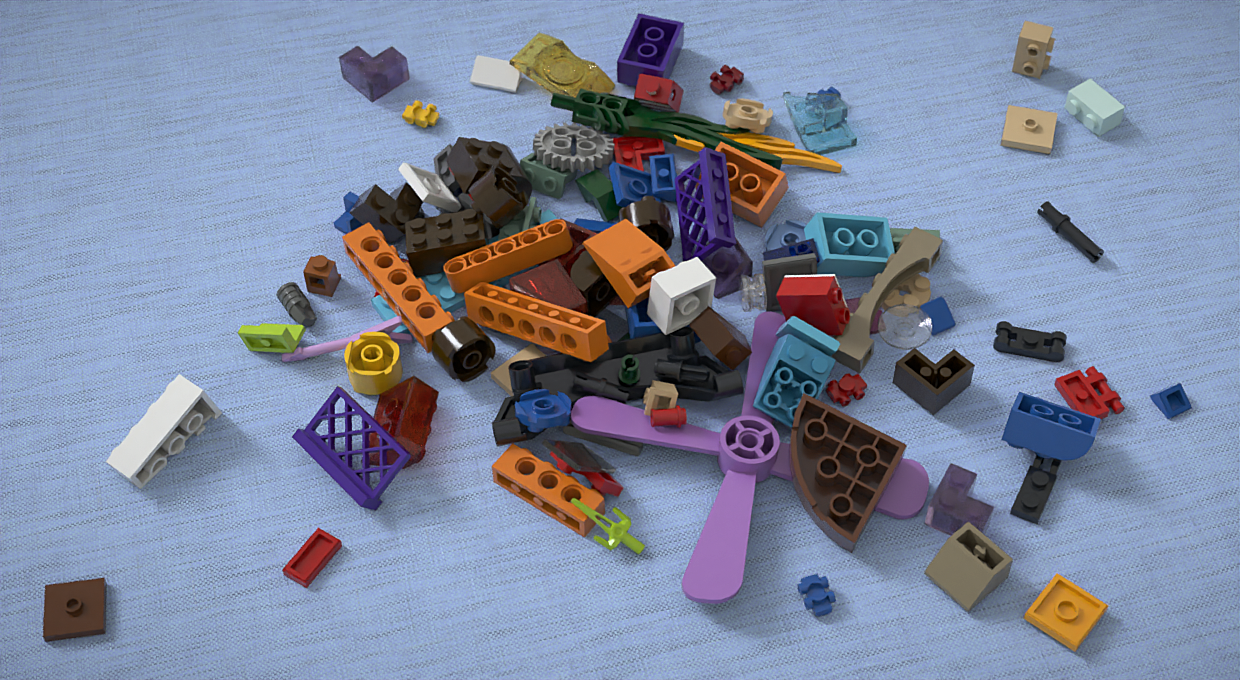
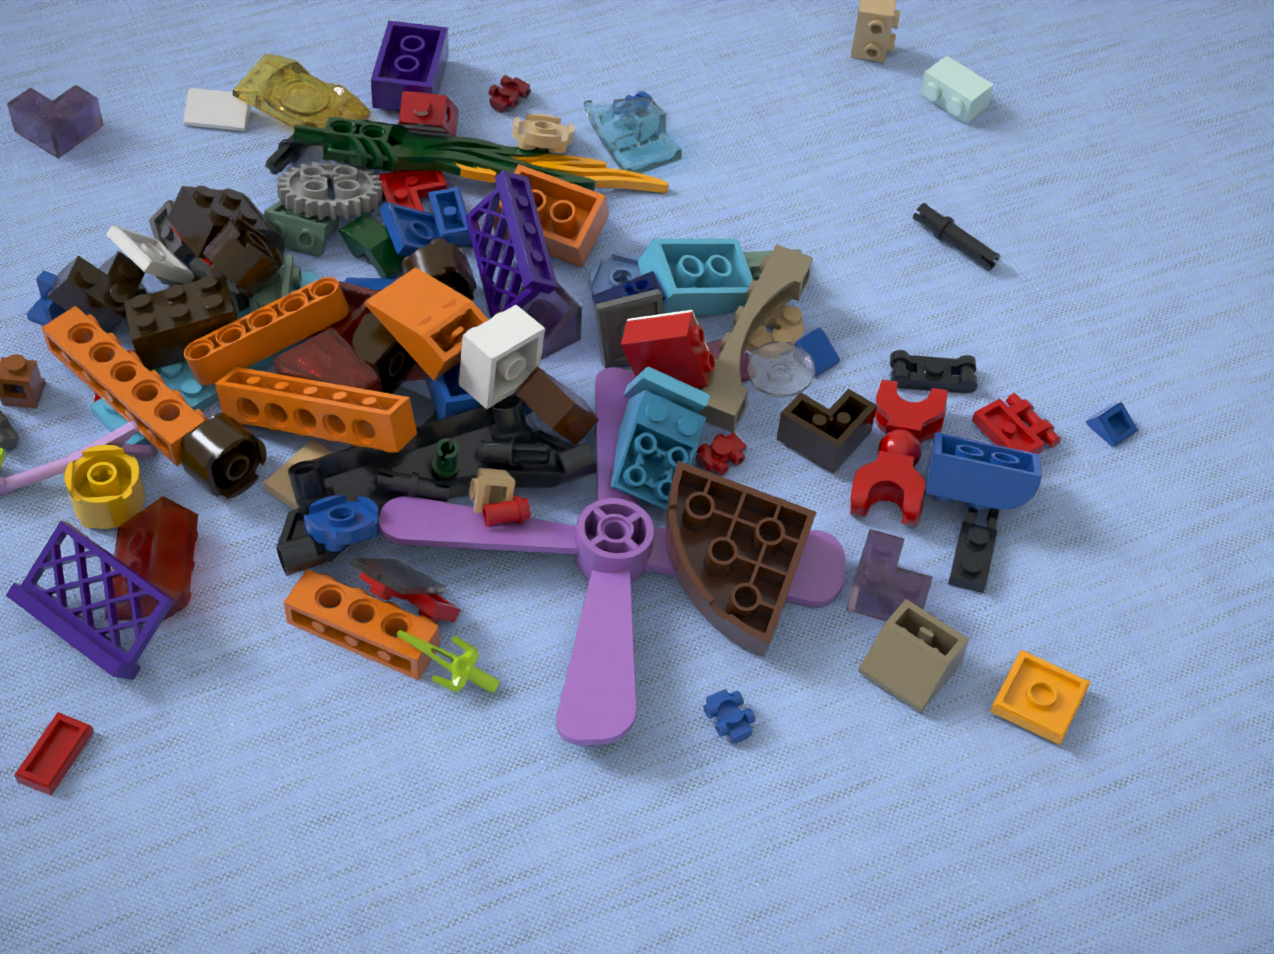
camera: 15 degrees left, 0 degrees up
(420, 116) = (125, 170): yellow piece -> none
(544, 114) = (286, 153): none -> black axle
(626, 446) = (456, 556): dark grey axle -> none
(753, 292) = (586, 346): clear wheel -> none
(988, 403) = (899, 451): none -> red piece
(1029, 129) = (884, 121): tan plate -> none

